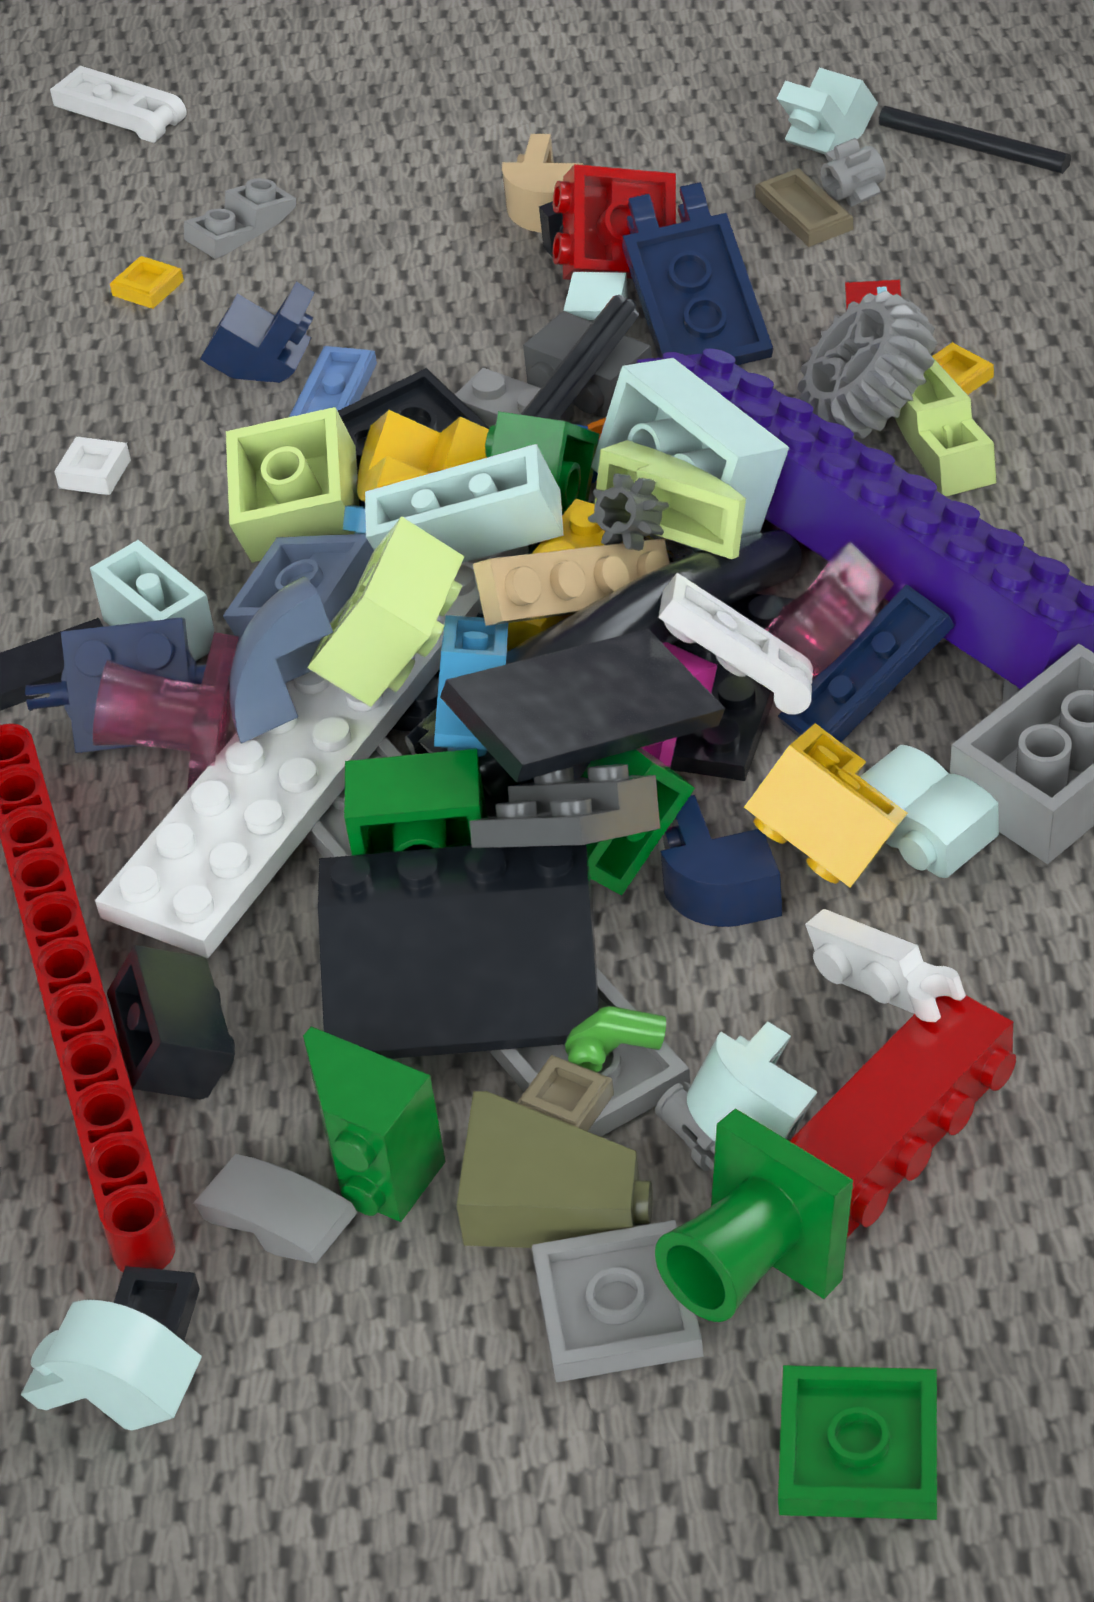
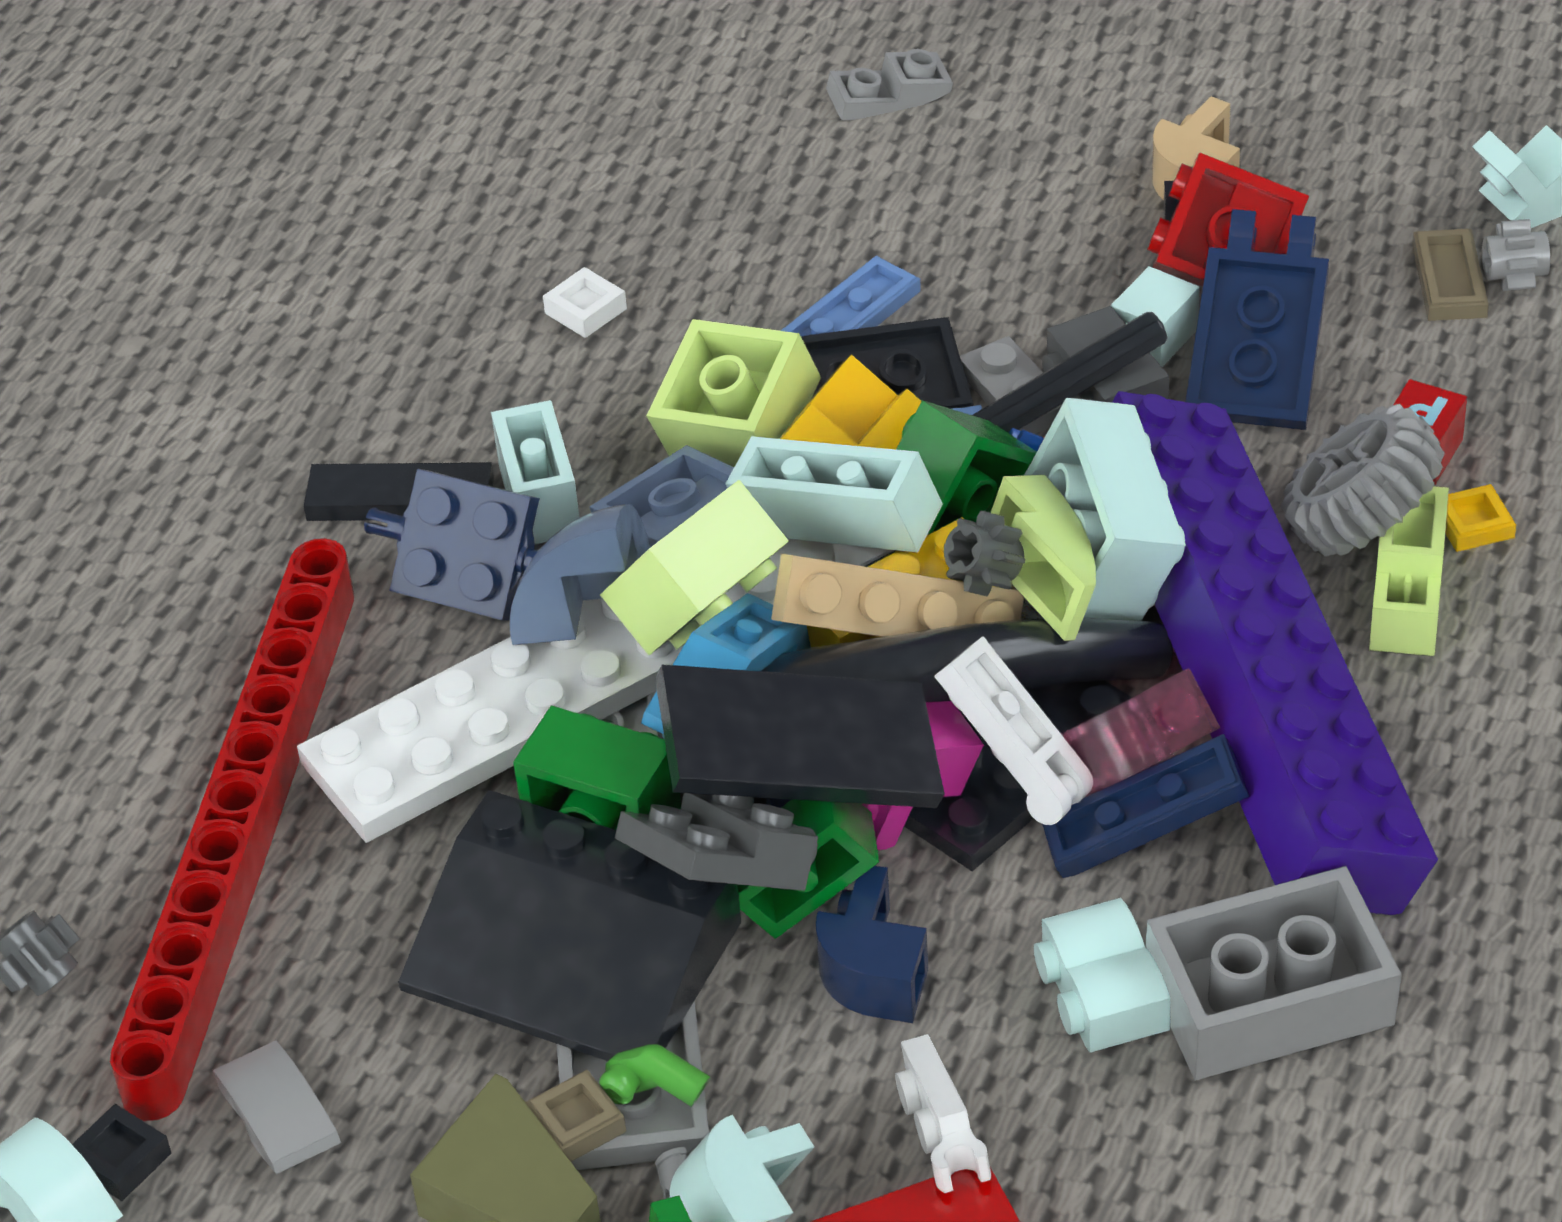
camera: 25 degrees right, 0 degrees up
(146, 282) = (760, 123): yellow tile -> none
(167, 712) = (461, 581): clear pink plant -> none
(170, 1023) = (293, 892): black brick -> none
(259, 344) = (812, 229): dark blue brick -> none
(376, 1124) = (385, 1068): green slope -> none
(825, 807) = (991, 928): yellow brick -> none

